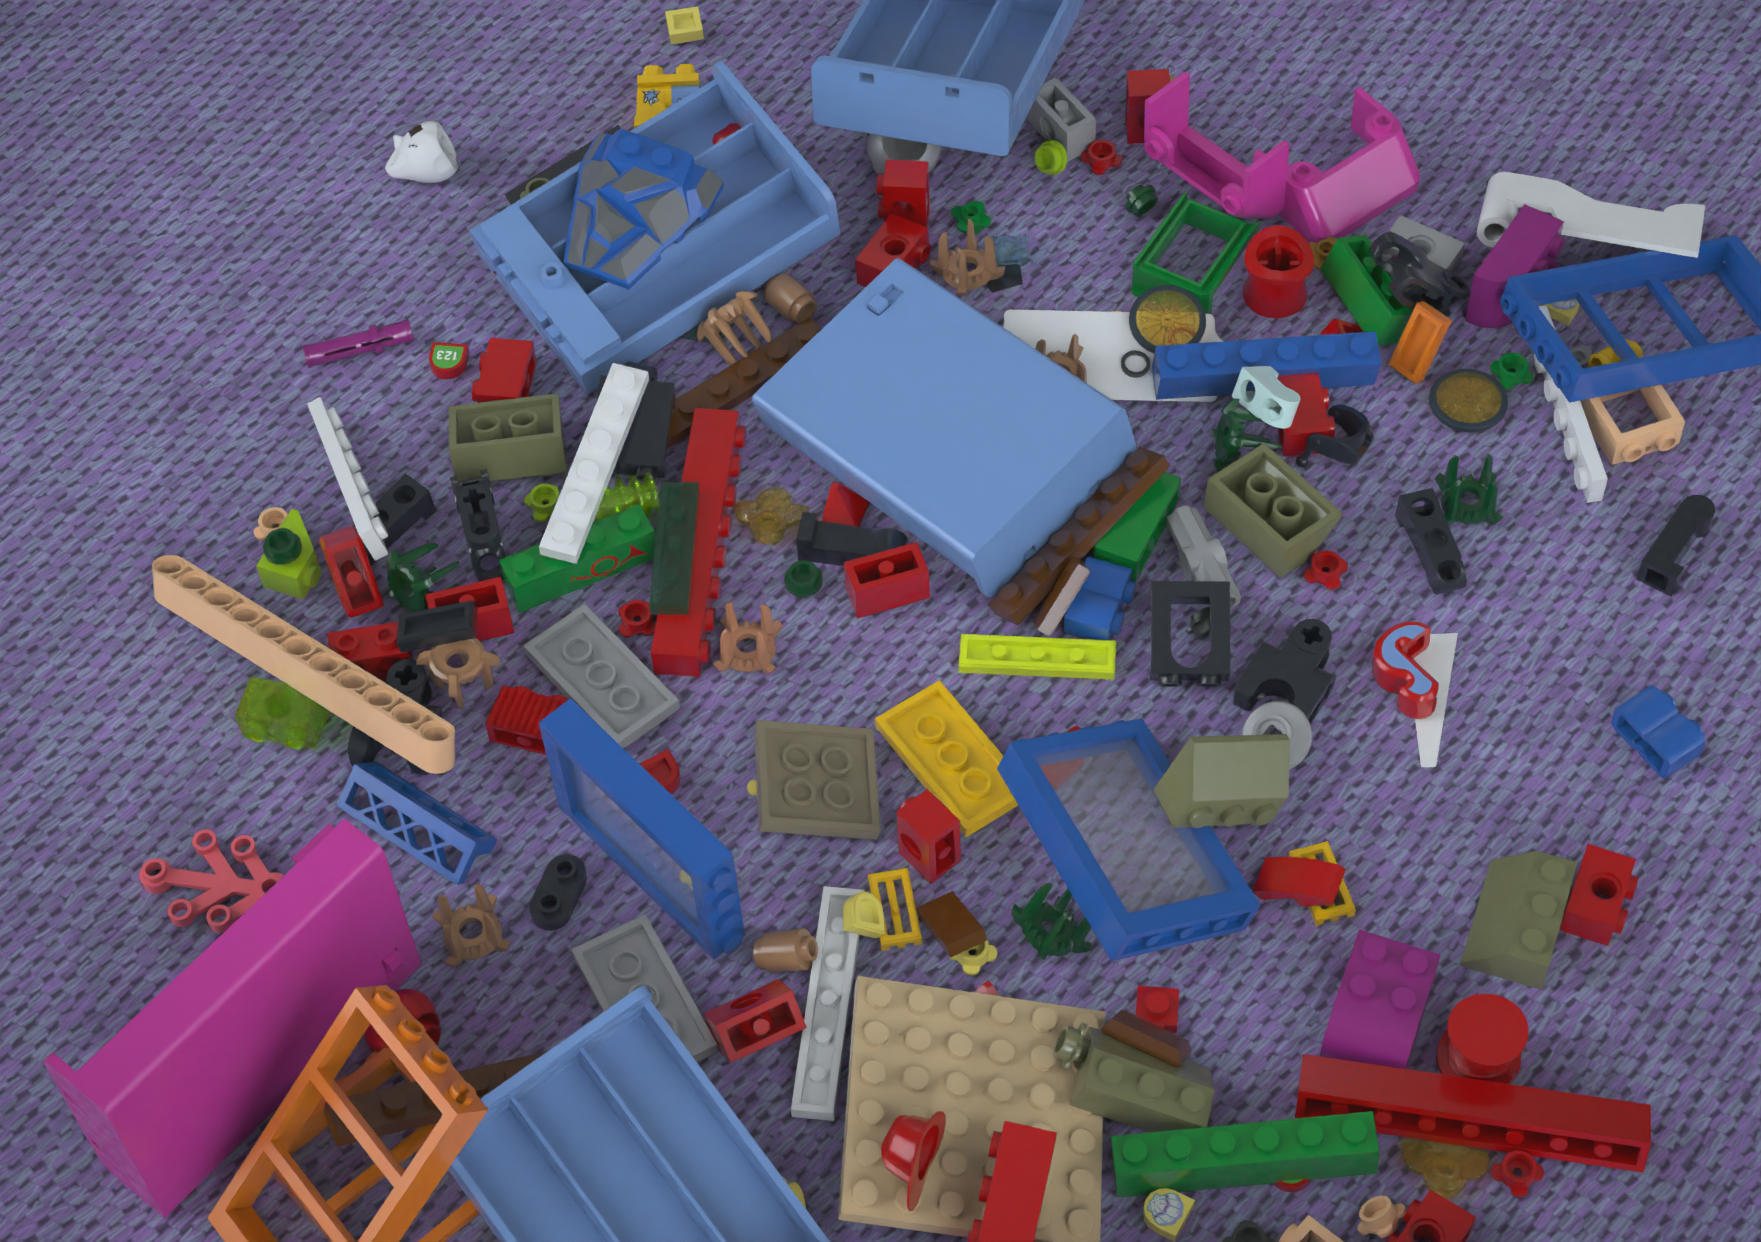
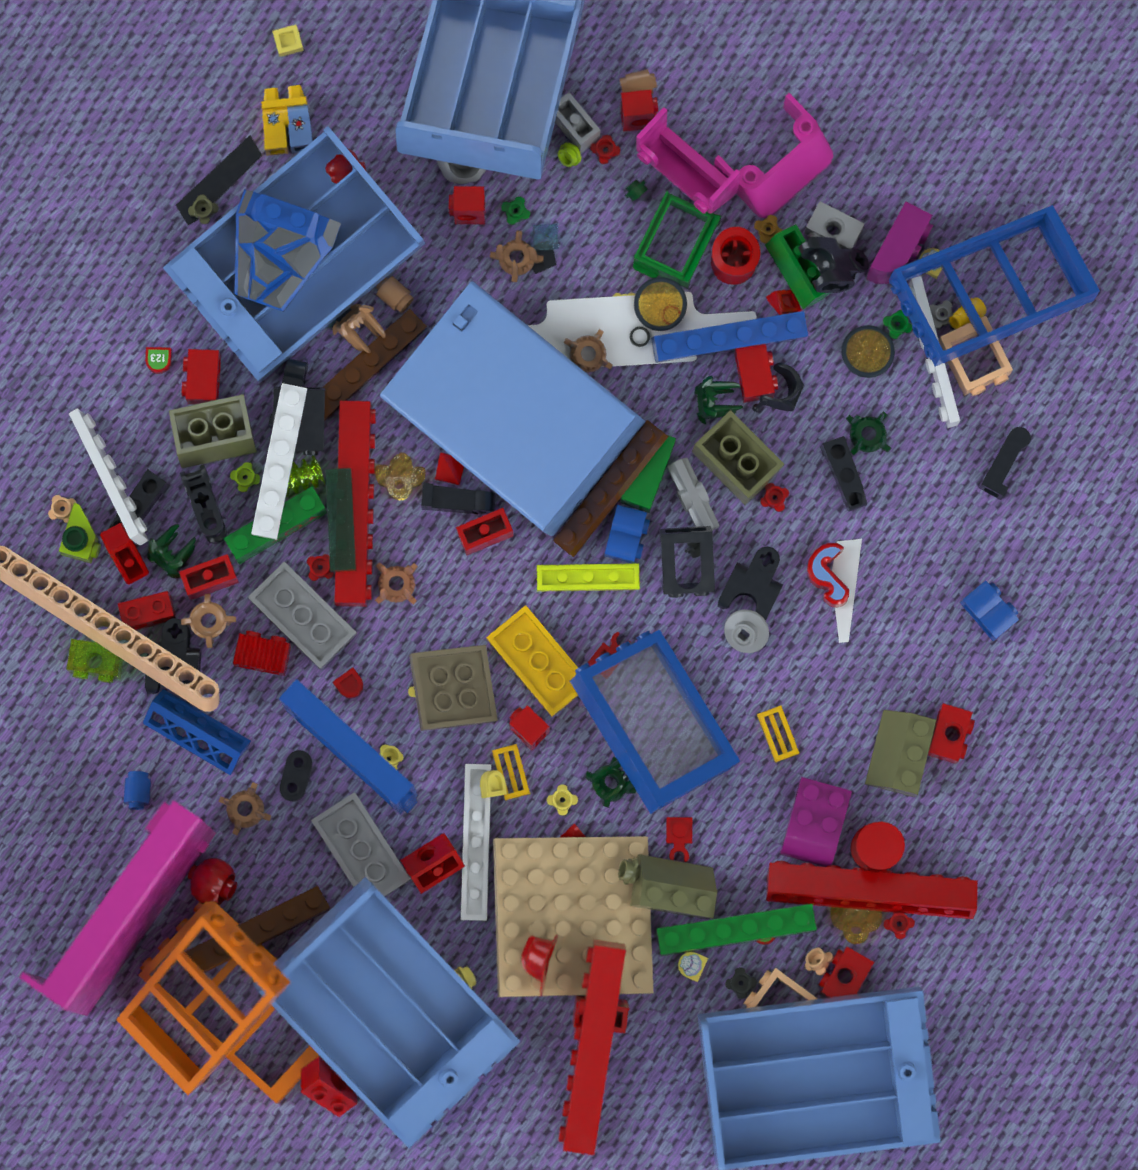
camera: 10 degrees left, 25 degrees up
(218, 885) = (78, 787): coral plant -> none
(358, 343) = (103, 347): magenta pin -> none
(423, 155) = (112, 180): white piece -> none
(437, 626) = (192, 600): black tile -> none
(785, 950) = (446, 811): medium nougat brick -> none
(803, 579) = (427, 528): dark green plate -> none
(893, 240) = (464, 237): red brick -> none
(951, 924) = (548, 785): reddish brown tile -> none
(1061, 596) = (601, 539): tile -> none
(1148, 1038) = (674, 858): reddish brown tile -> none
(1226, 781) = (716, 682): olive slope -> none
(1270, 400) = (731, 374): light aqua leg -> none
(1303, 879) = (763, 739): red slope -> none
(1419, 342) = (834, 312): orange tile -> none
(1670, 231) = (949, 199): white door -> none

